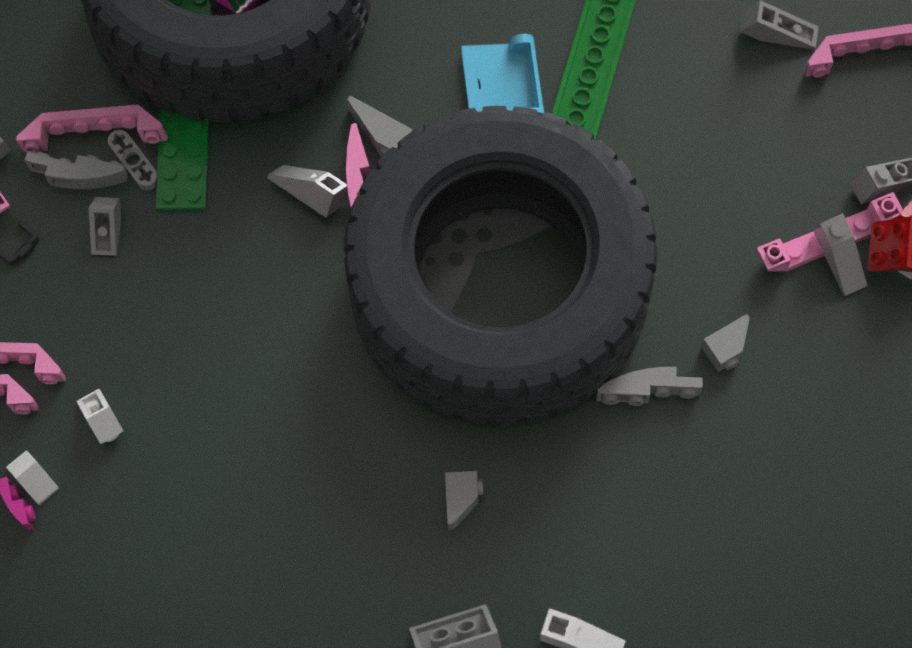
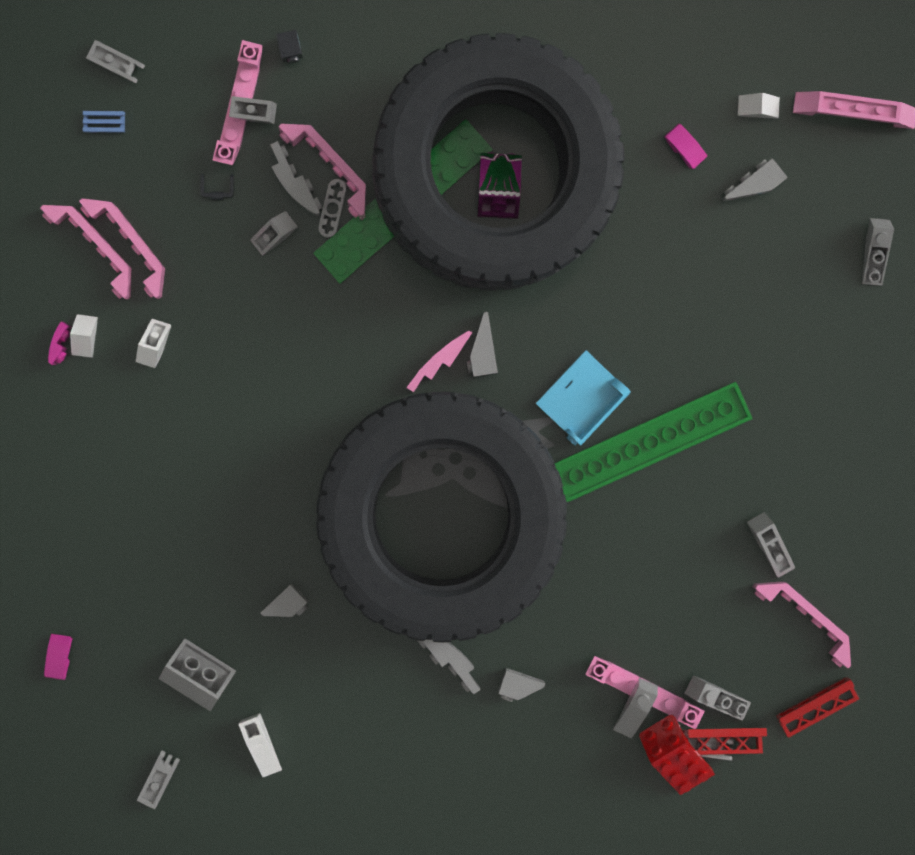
camera: 45 degrees right, 20 degrees up
(313, 187) = (407, 343): light grey slope -> none

